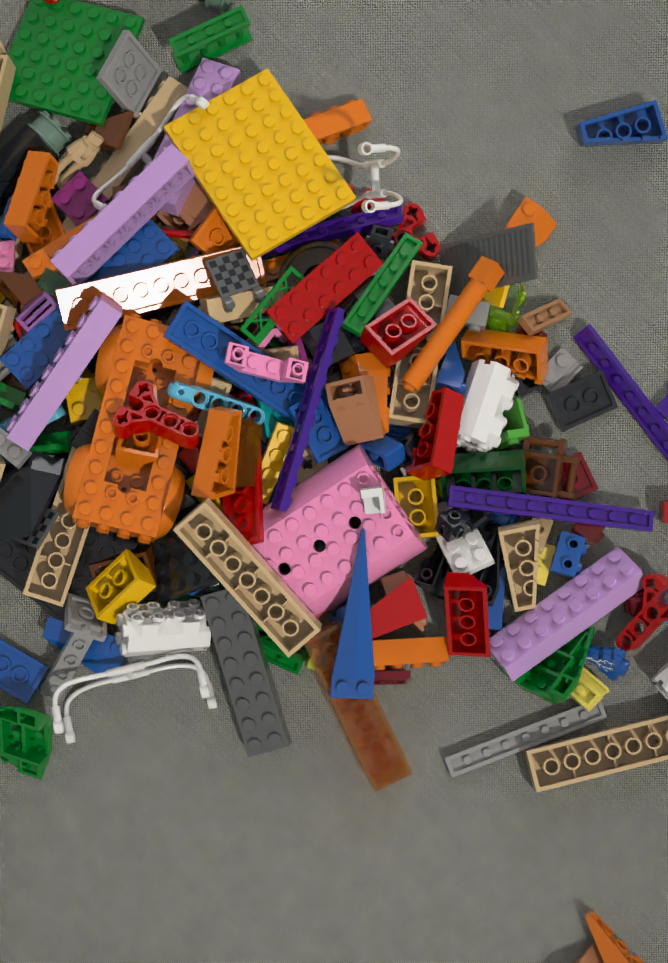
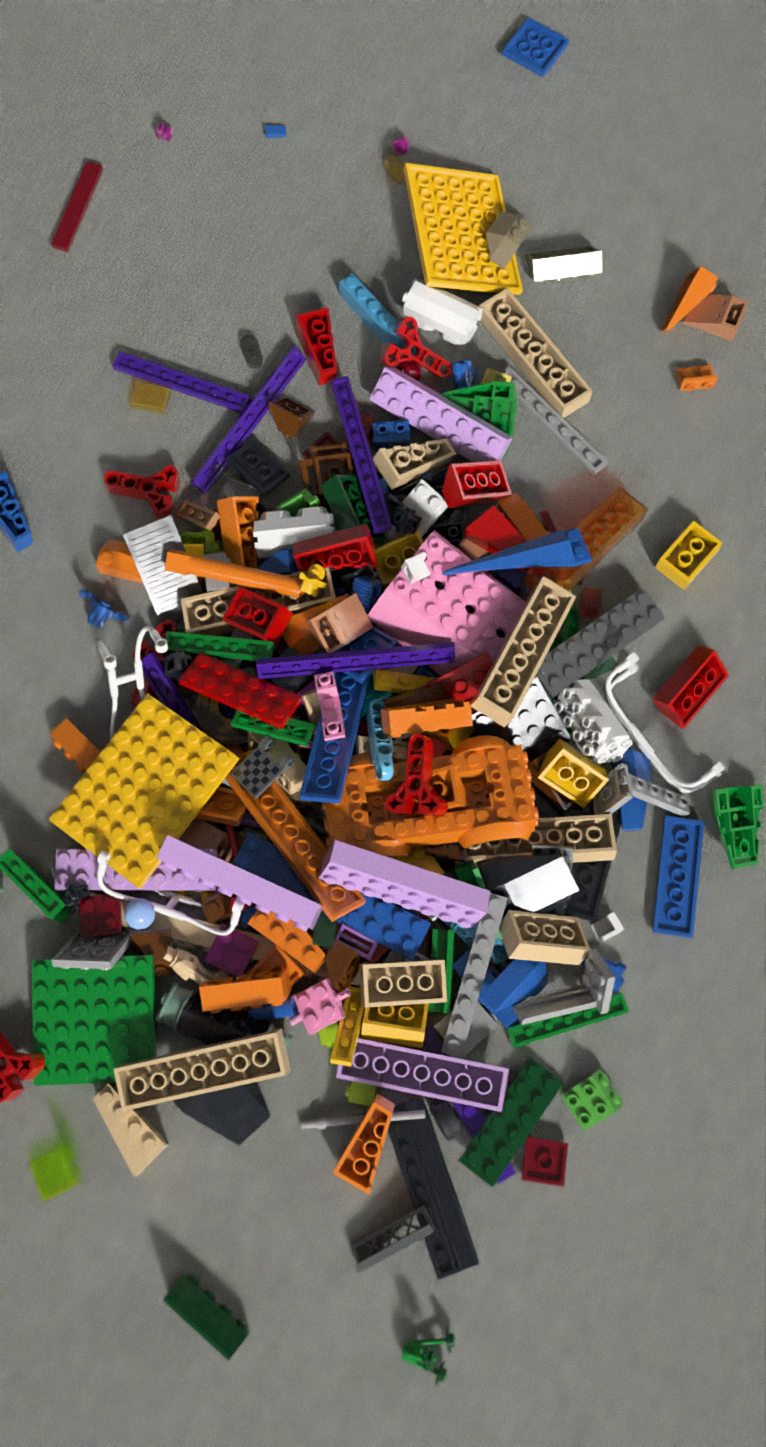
camera: 115 degrees left, 10 degrees down
(145, 125) = (139, 914): none -> light blue hair
(160, 90) = (100, 916): none -> dark red plate
(169, 754) = (691, 686): none -> red slope
(187, 71) = (73, 895): none -> black hinge
(298, 690) = (591, 602): none -> clear red brick
(309, 816) = (688, 555): none -> yellow brick
(410, 397) = (312, 582): none -> yellow hips
(476, 190) = (101, 610): none -> blue piece
(520, 924) = (696, 378): none -> orange bracket
(600, 290) = (165, 480): none -> red beam
(632, 456) = (290, 416): none -> reddish brown slope

